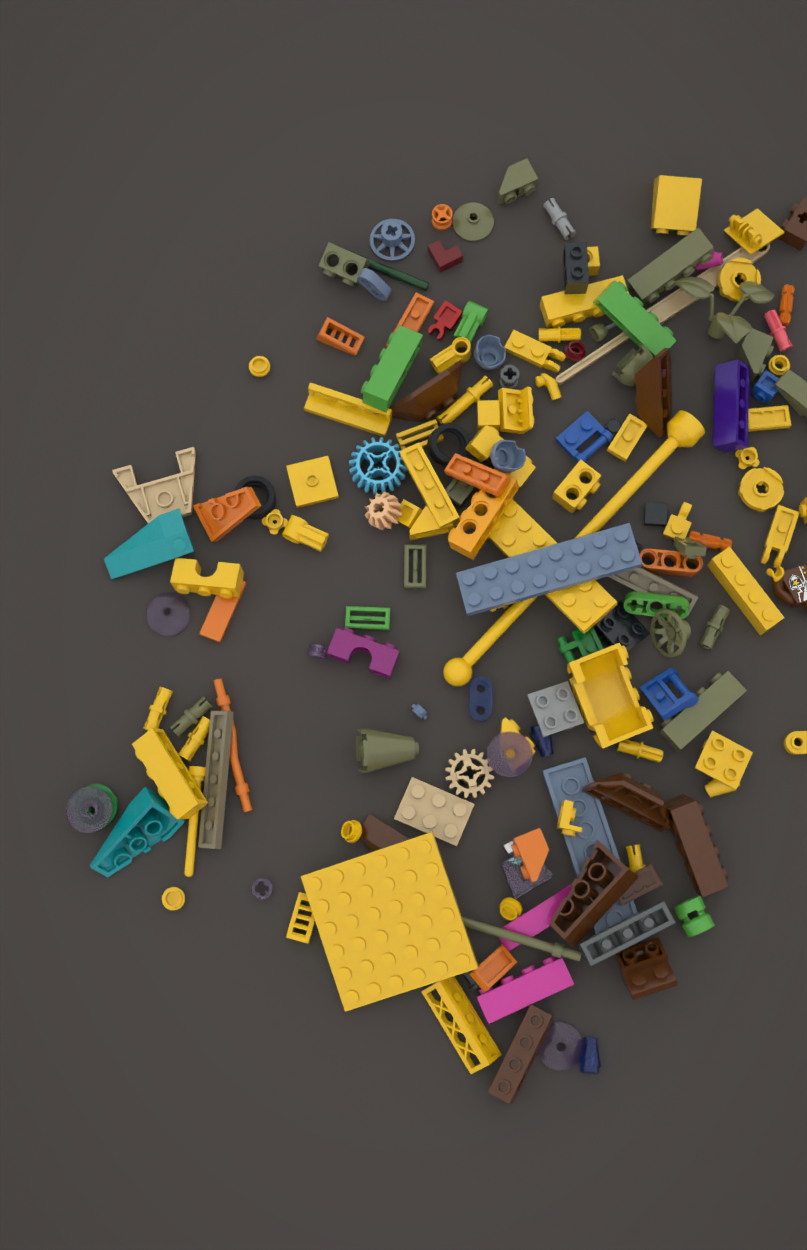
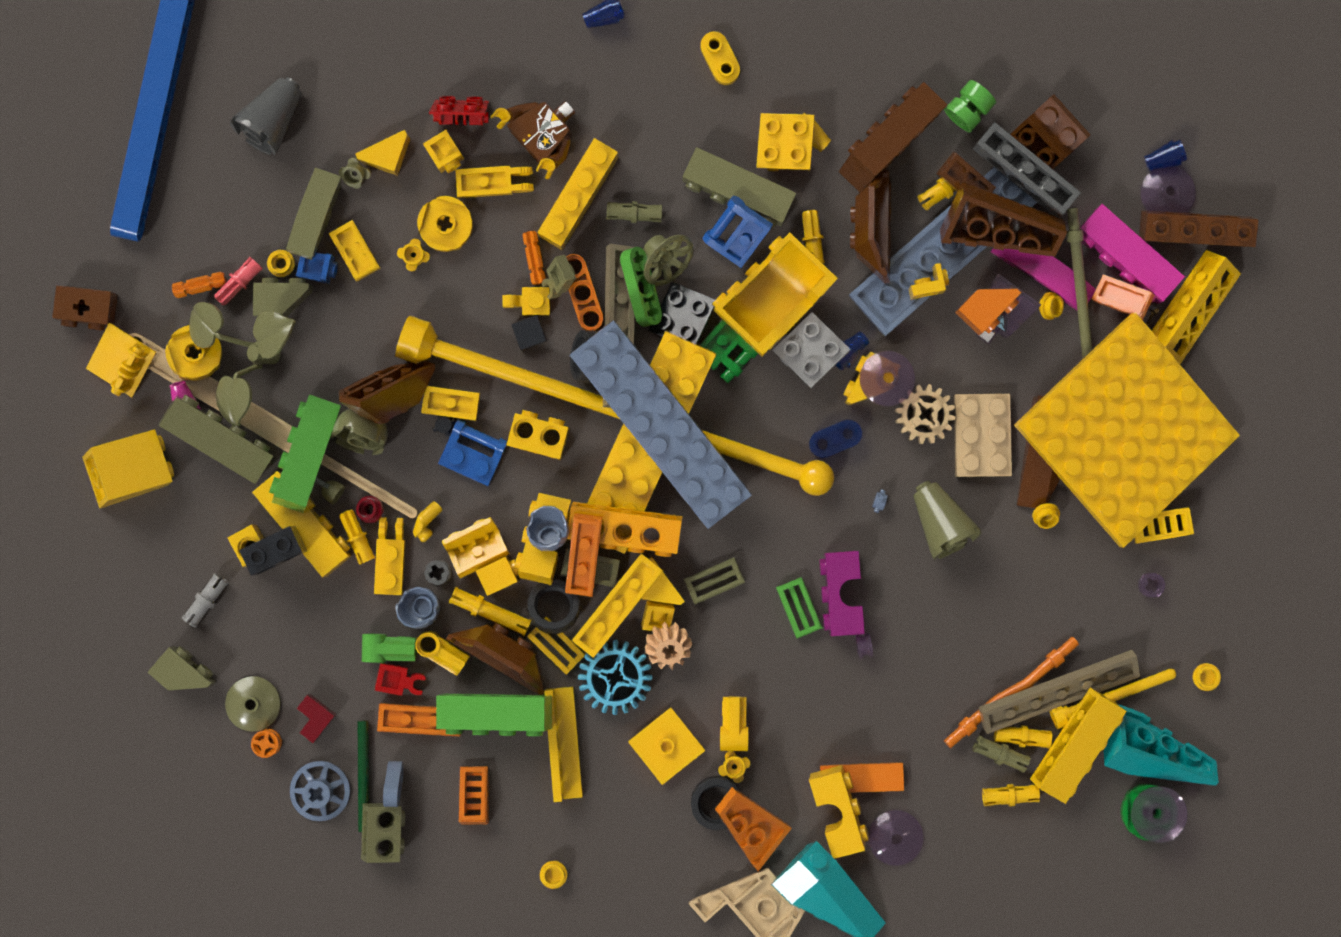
camera: 115 degrees left, 10 degrees up
(731, 406) = (360, 298): dark purple brick -> none

